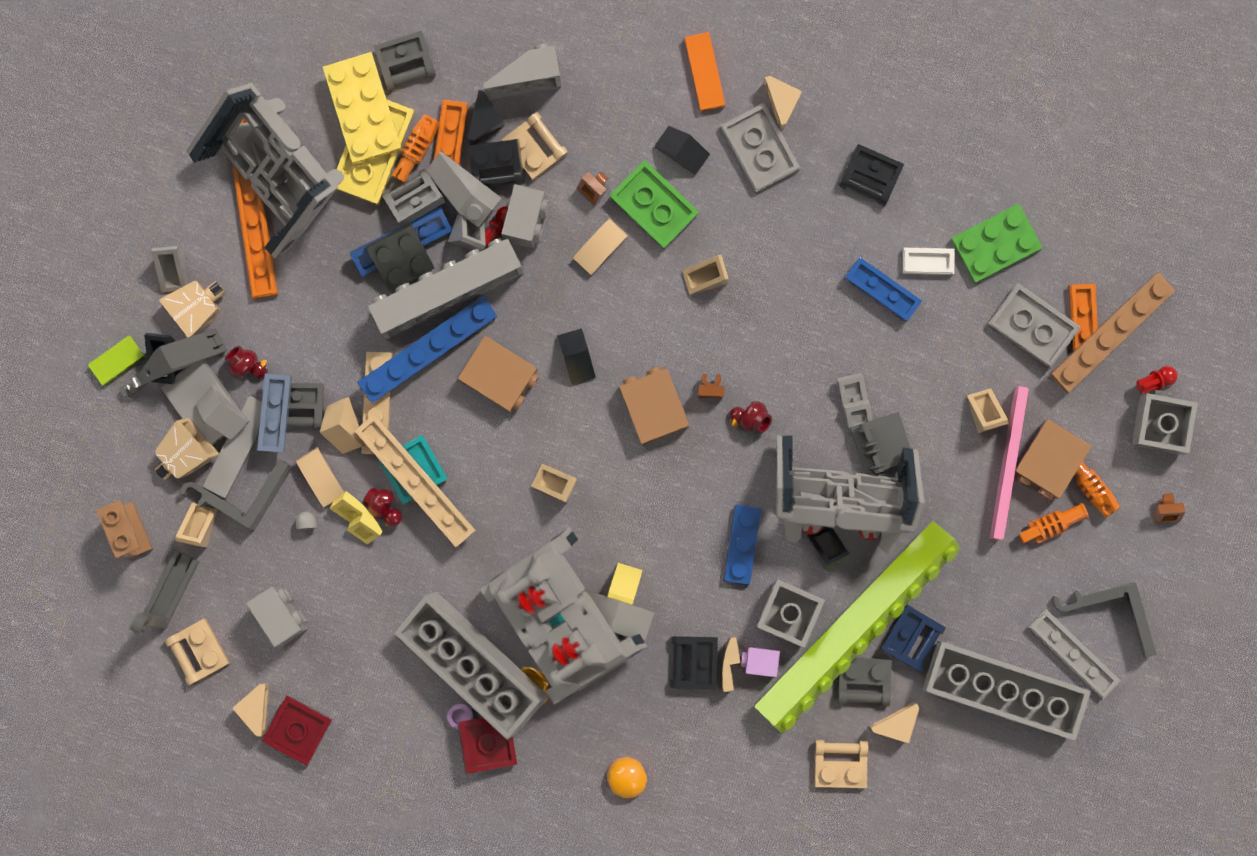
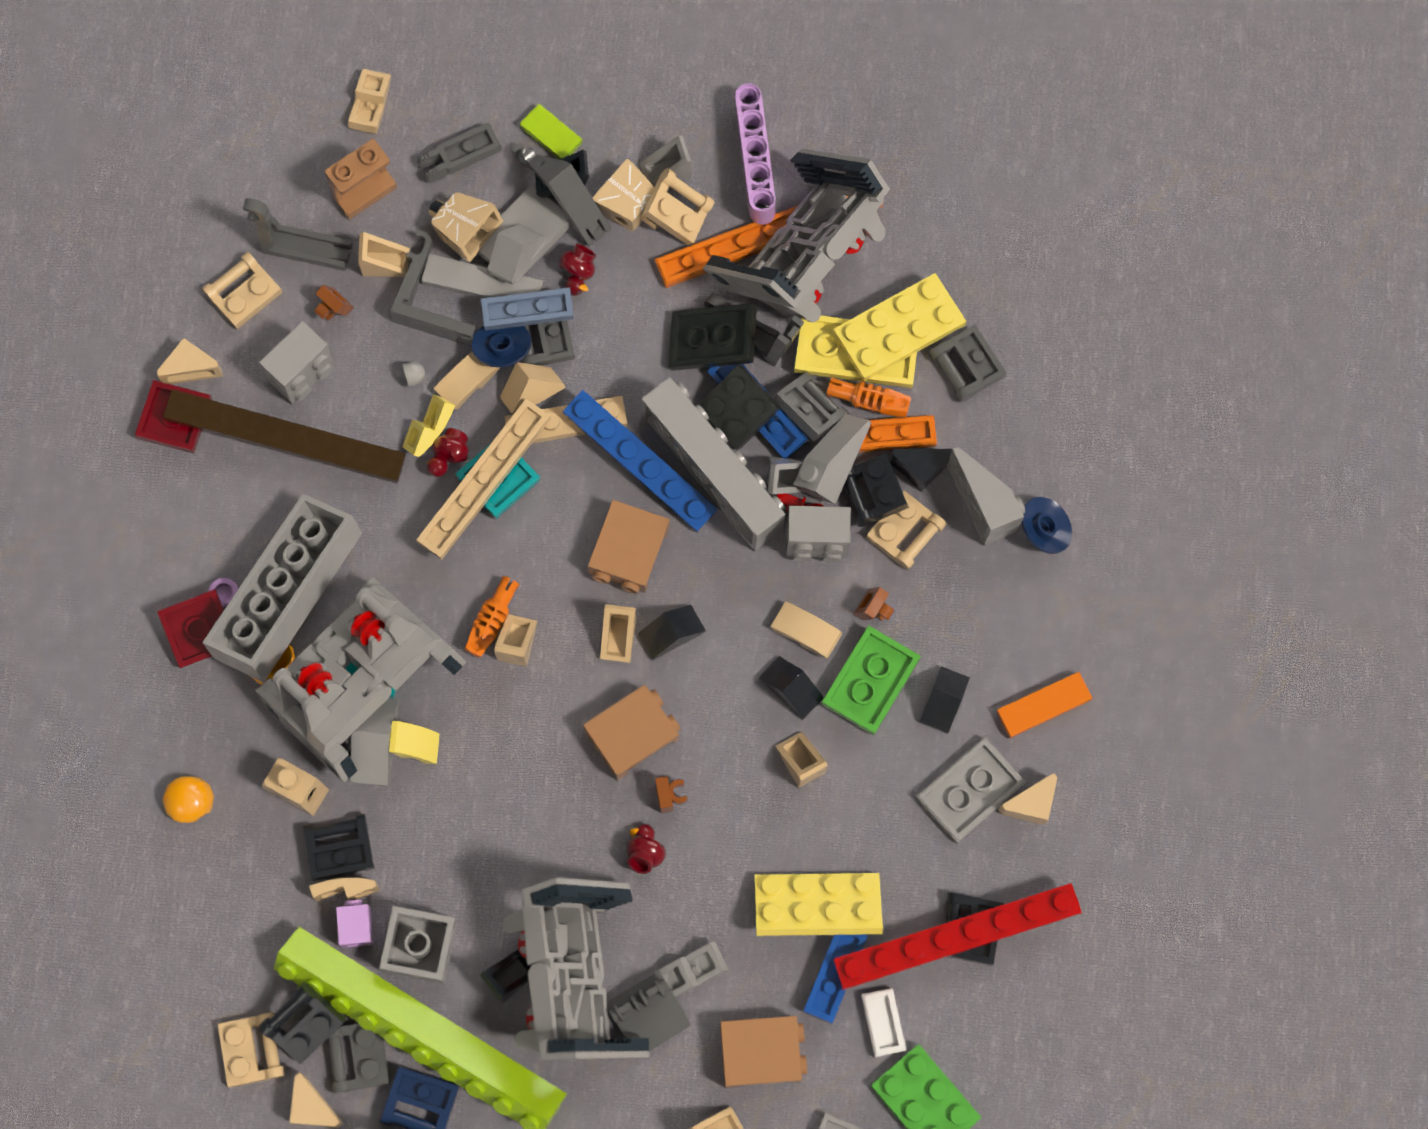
camera: 75 degrees right, 10 degrees down
(50, 509) = (370, 101): none -> tan slope
(116, 440) = (460, 152): none -> dark grey hinge
(167, 189) = (757, 141): none -> lavender beam
(217, 272) = (672, 213): none -> tan plate
(227, 576) = (332, 303): none -> dark orange tile
(297, 430) = (501, 346): none -> dark blue dish
(334, 264) = (712, 337): none -> pearl dark grey tile
(337, 640) = (284, 436): none -> dark brown tile
(347, 220) = (768, 341): none -> dark grey hinge
(532, 500) = (490, 618): none -> orange hinge
(559, 30) = (1046, 525): none -> dark blue dish
(570, 399) = (618, 633): none -> tan slope
(637, 689) = (295, 786): none -> tan torso
(644, 270) = (792, 686): none -> black slope
(742, 544) = (490, 873): blue plate -> none
(826, 289) = (818, 904): none -> light yellow plate
(839, 715) = (309, 1030): none -> black plate
(877, 186) = (957, 936): none -> red plate
(932, 360) = (762, 1051): none -> medium nougat panel

